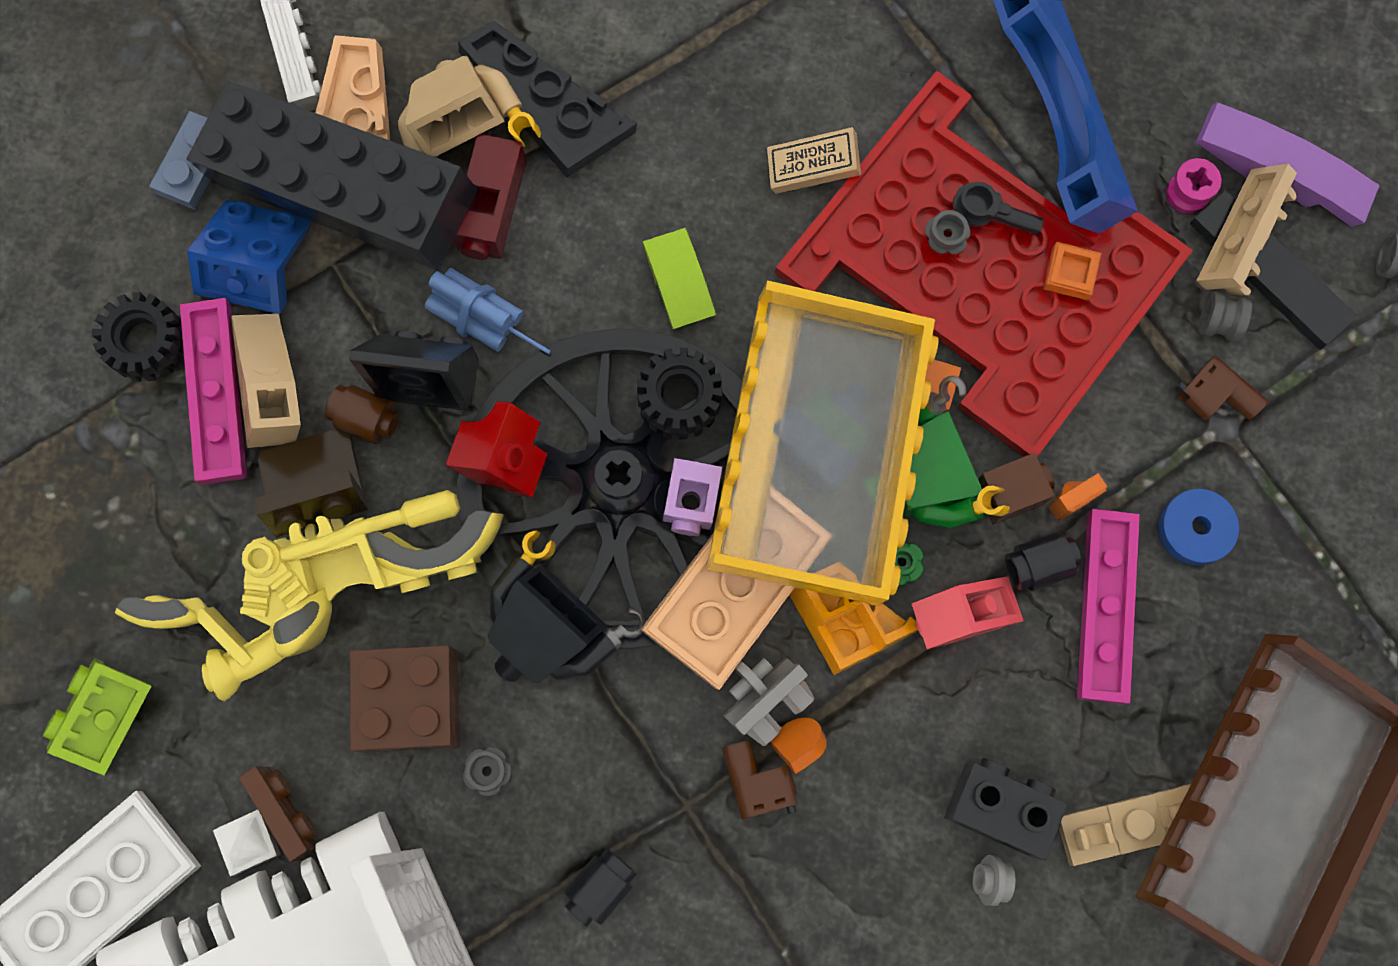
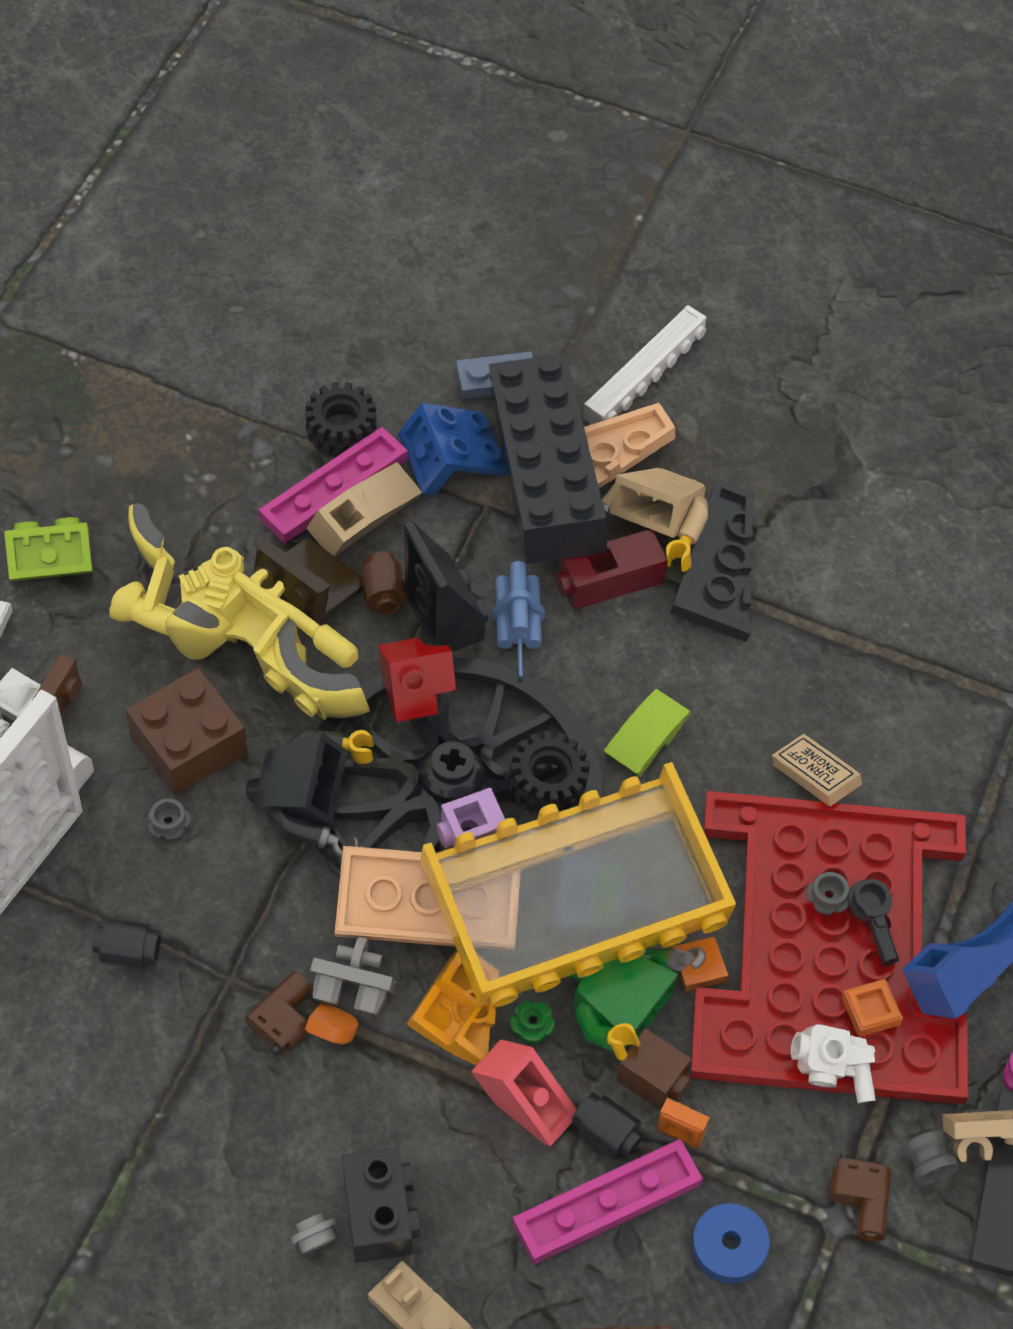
camera: 55 degrees right, 20 degrees down
(1103, 334) = (831, 1054): none -> white piece

